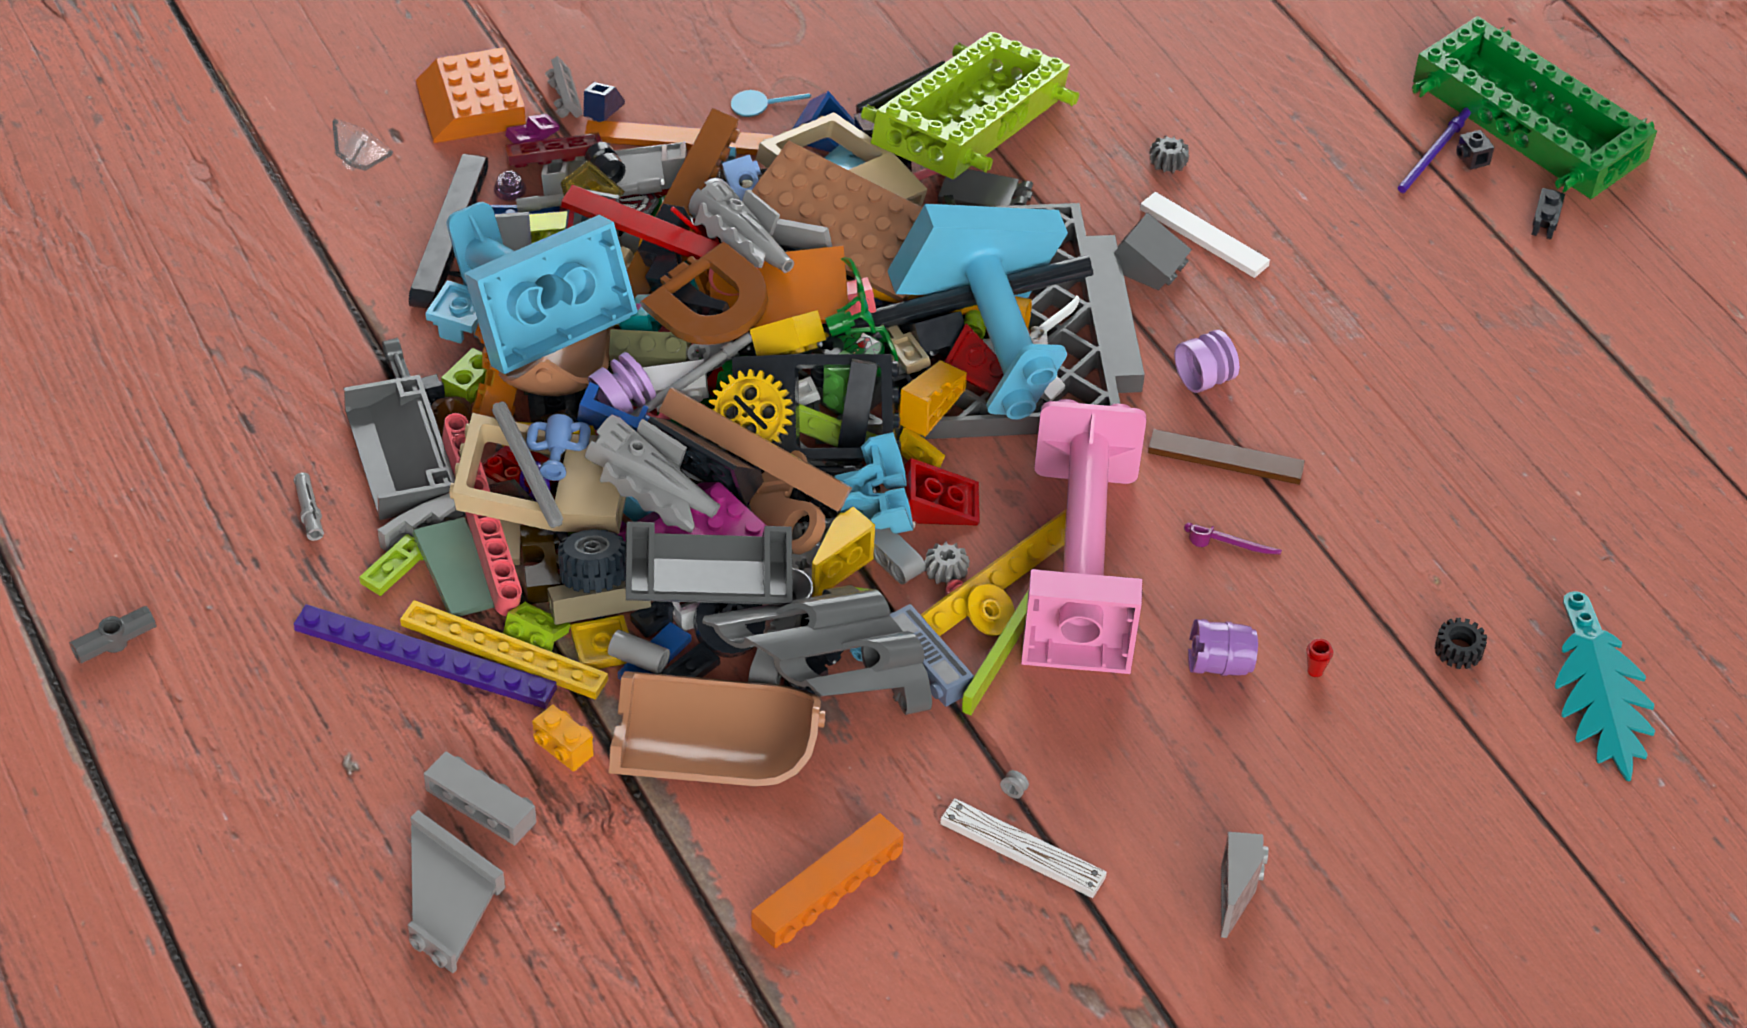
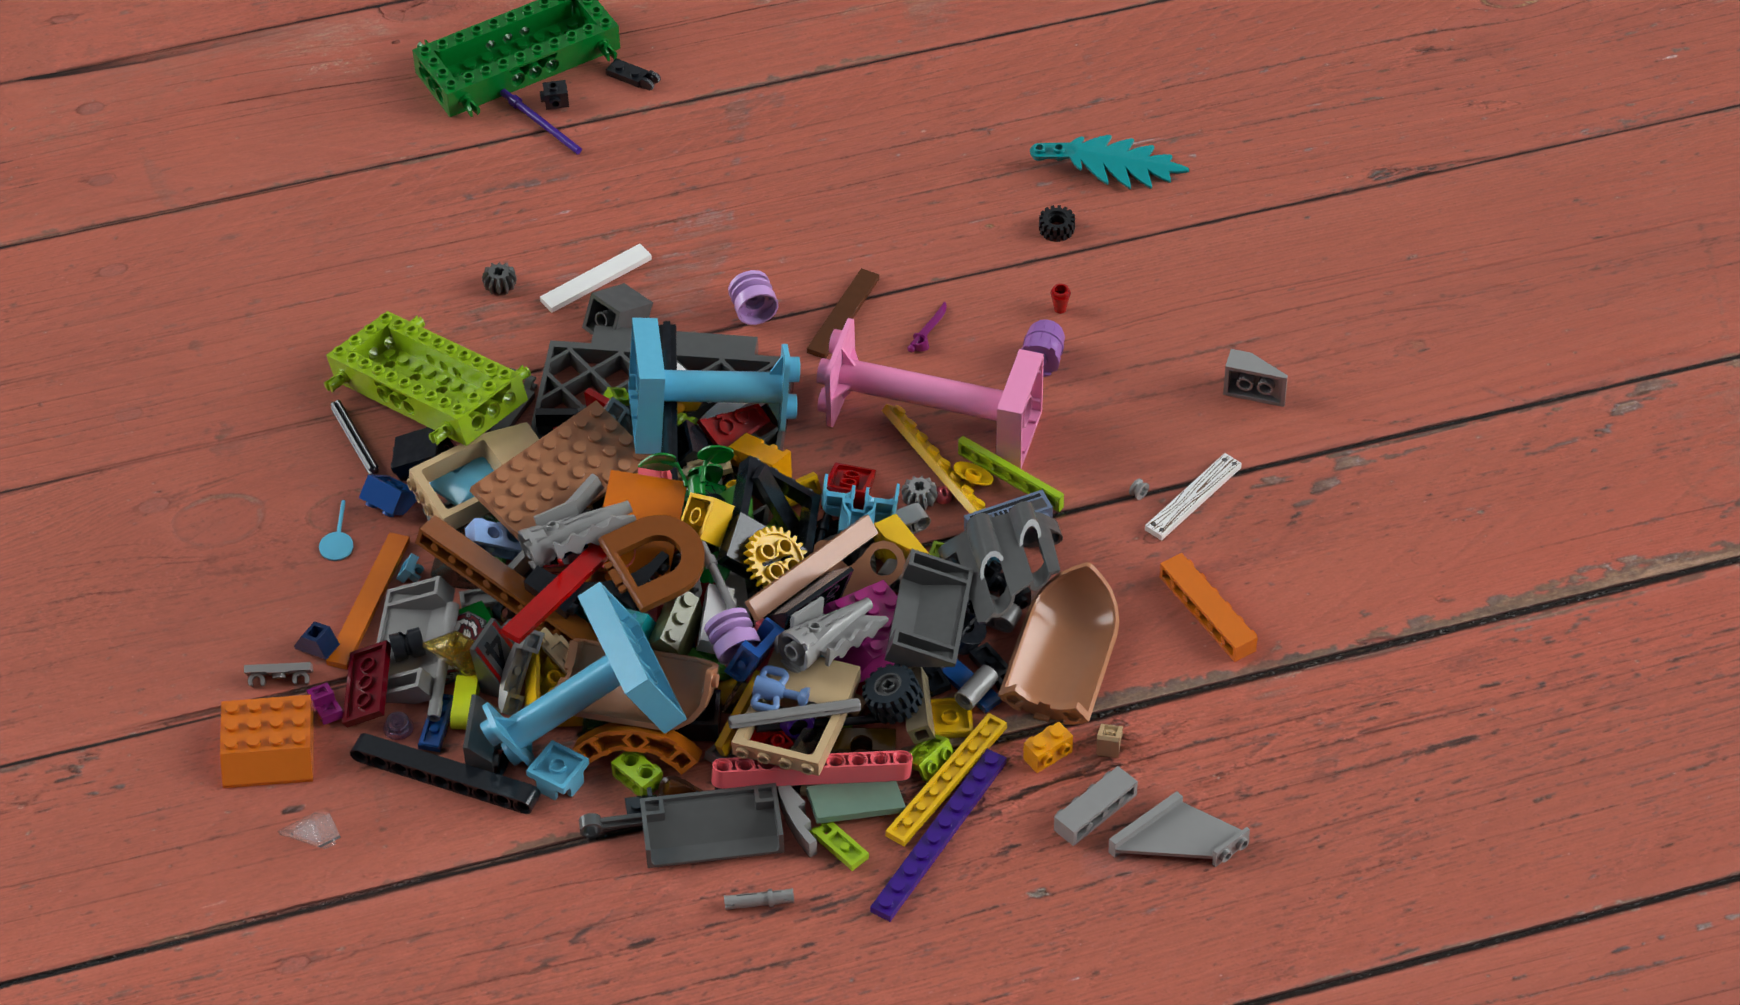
camera: 75 degrees left, 0 degrees up
(587, 795) = (1109, 740): none -> tan slope

